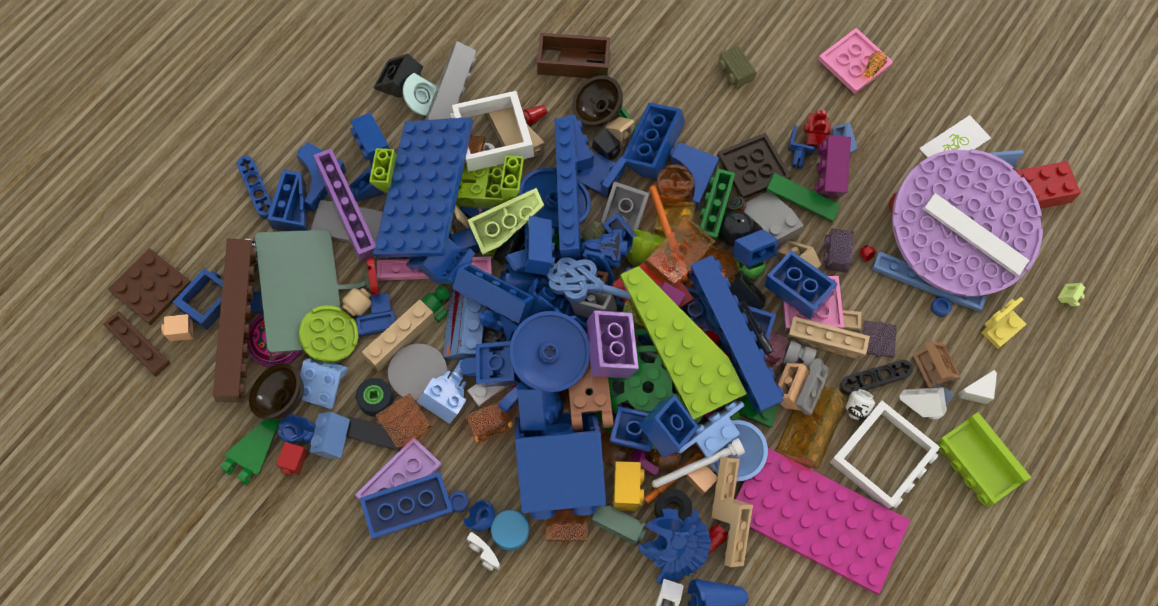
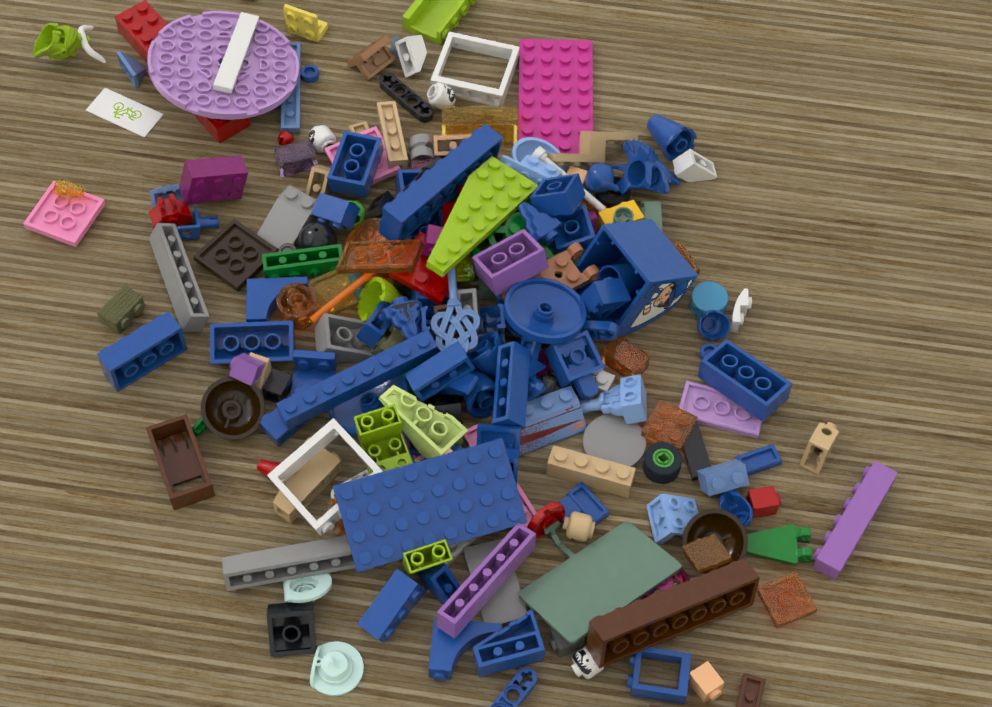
camera: 115 degrees left, 10 degrees down
(201, 428) = (786, 599): none -> clear orange plate
(230, 528) = (855, 519): none -> medium lavender brick
(263, 372) = (706, 553): none -> clear orange piece
(303, 531) = (824, 439): none -> tan torso
(328, 334) = (627, 534): lime tile -> none
(333, 482) = (760, 459): none -> blue tile
(354, 95) = (336, 669): none -> light aqua hat
(434, 302) = (536, 460): green piece -> none
(614, 469) = (623, 214): none -> sand green wheel
(619, 113) = (246, 369): none -> medium lavender brick
(645, 395) = (539, 224): none -> blue rock
(684, 61) = (142, 351): none -> blue brick
(687, 494) = (600, 178): none -> blue hair
(717, 536) = (616, 156): red cone -> none
(747, 112) = (178, 277): none -> light grey brick
(803, 197) = (253, 203): green tile -> none
(812, 387) = (447, 127): light grey hinge -> none
(853, 281) = (321, 138): none -> white head
(881, 338) = (364, 107): piece -> none
(981, 390) = (373, 23): white slope -> none
(1049, 107) = (61, 41): none -> lime helmet

